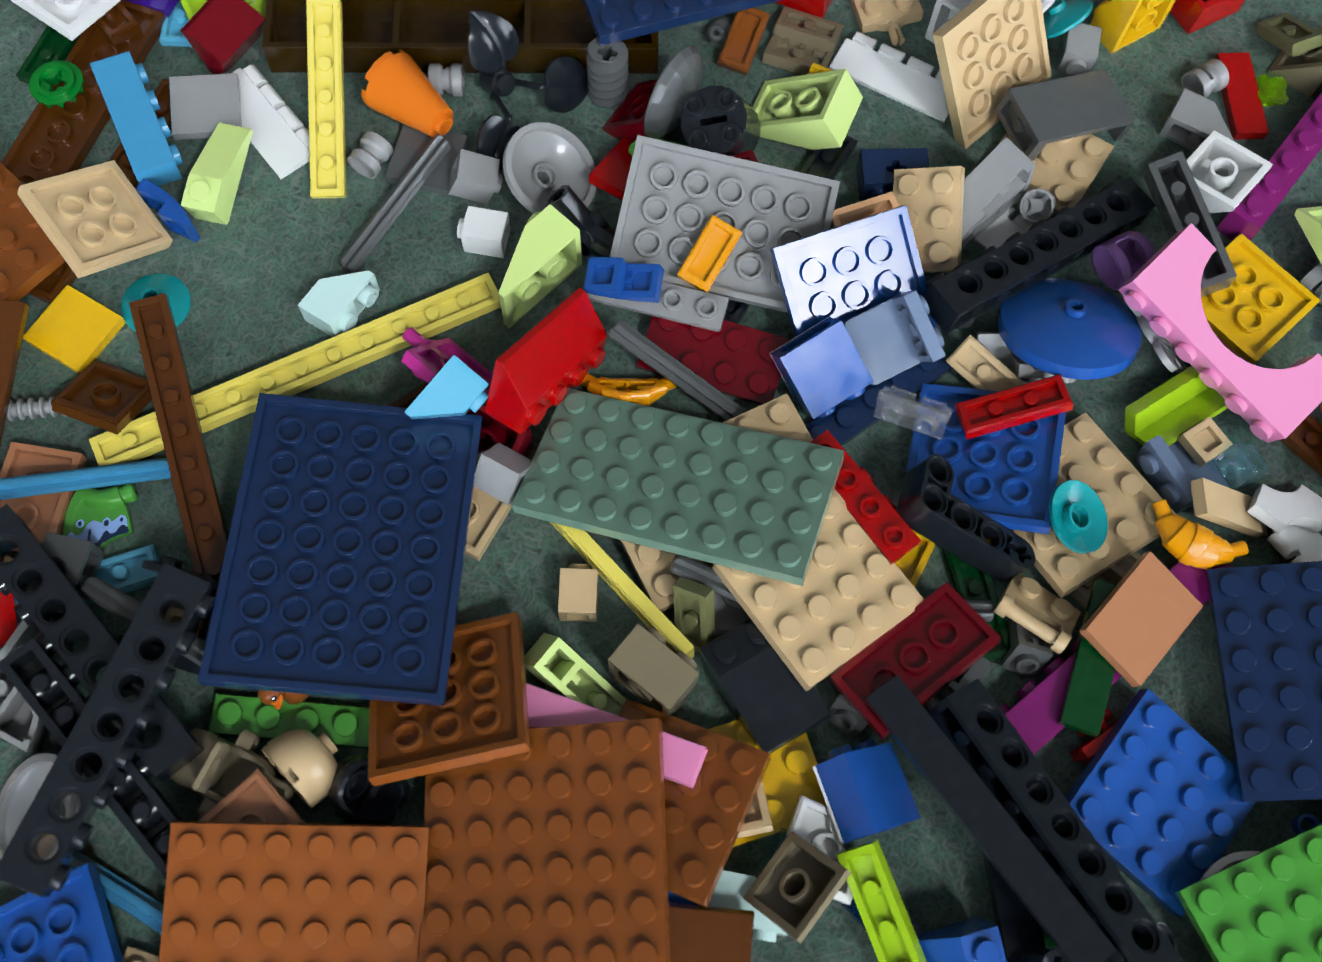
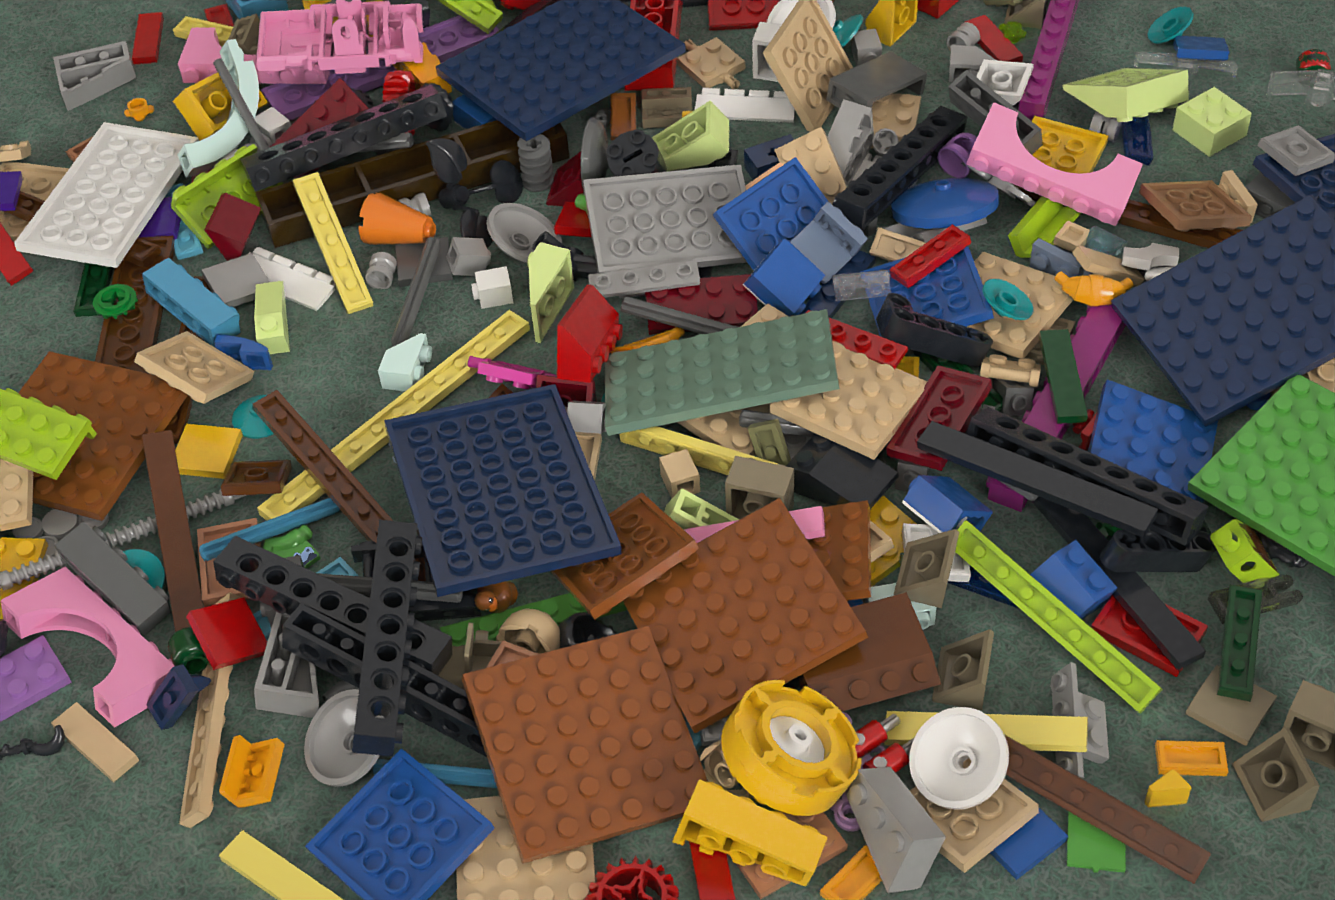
camera: 15 degrees left, 20 degrees down
(450, 393) = (529, 370): medium azure slope -> none
(622, 280) = (622, 271): blue slope -> none
(709, 254) = (669, 237): light orange tile -> none
(1141, 619) = (1080, 340): nougat tile -> none

